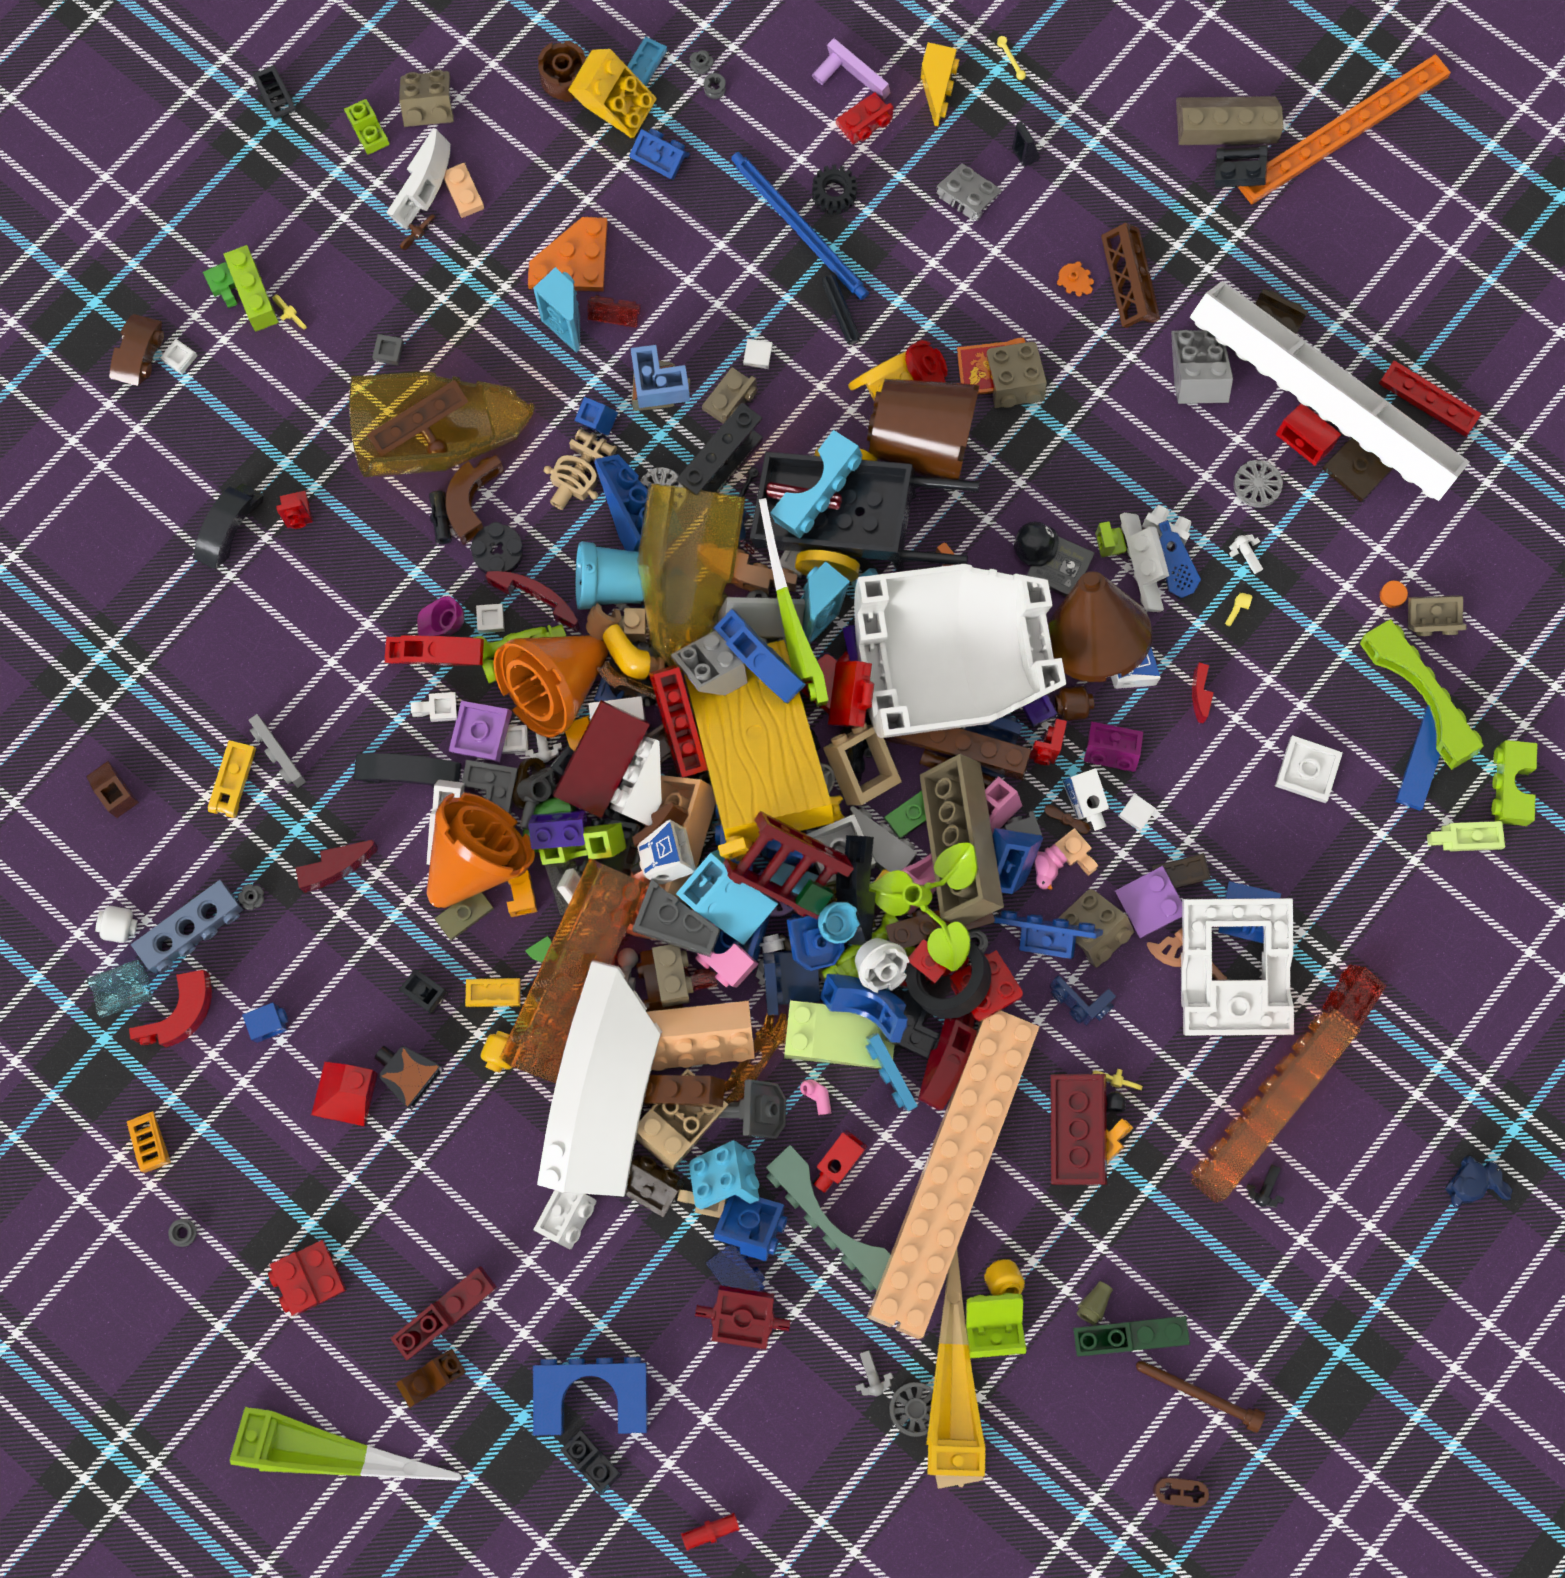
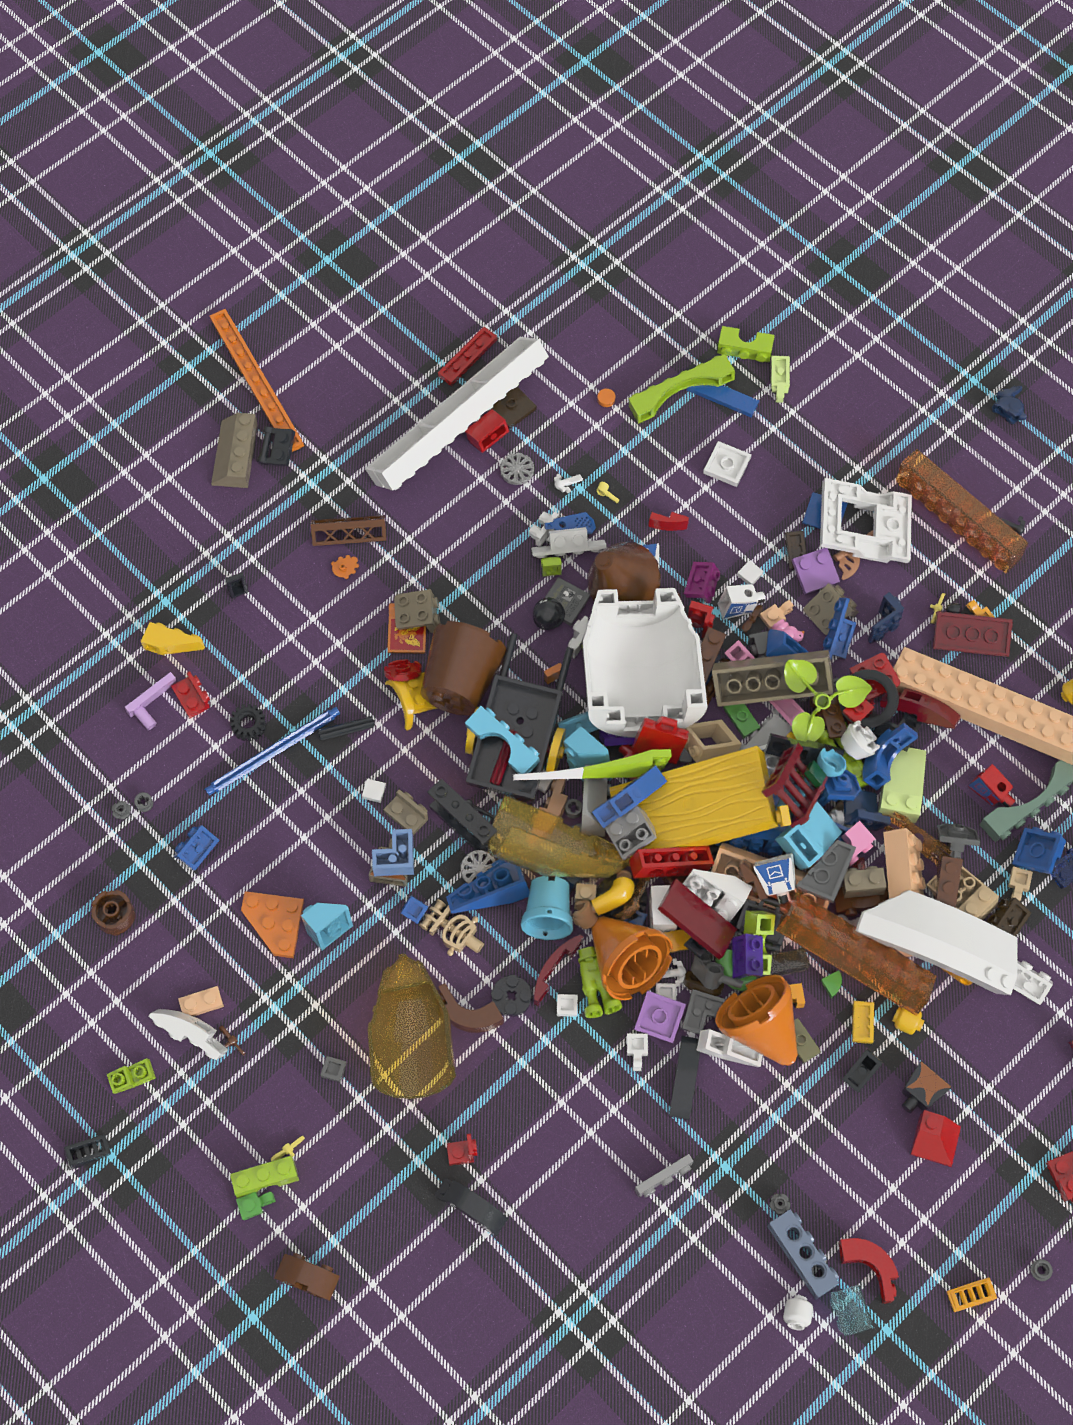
camera: 85 degrees left, 10 degrees down
(111, 790) = (686, 1312): reddish brown slope -> none
(178, 356) = (314, 1244): white tile -> none
(231, 778) = (683, 1214): yellow plate -> none
(265, 1022) = (881, 1195): blue brick -> none
(335, 865) = (759, 1135): dark red slope -> none
(419, 419) = (405, 1041): reddish brown plate -> none
(425, 98) = (114, 1024): dark tan bracket -> none
(434, 650) = (595, 1044): red slope -> none
(439, 517) = (481, 1037): black pin -> none
(440, 618) = (566, 1041): magenta piece -> none
(568, 884) = (788, 954): white tile -> none
(607, 311) = (326, 884): clear red hinge -> none
(612, 91) = (140, 874): yellow slope -> none
(647, 59) = (115, 852): dark azure plate -> none
(723, 1174) = (1004, 866): medium azure bracket -> none
(818, 1093) = (943, 799): bright pink arm -> none
(890, 1073) = (931, 748): dark azure plate -> none
(969, 190) = (264, 629): light grey hinge -> none
(1002, 42) = (143, 595): light yellow hinge -> none
(1200, 368) = (426, 492): light grey slope -> none
(1286, 312) = (392, 434): dark brown bracket -> none
(1355, 994) = (884, 457): clear red bracket -> none
(1436, 614) = (625, 373): dark tan bracket -> none

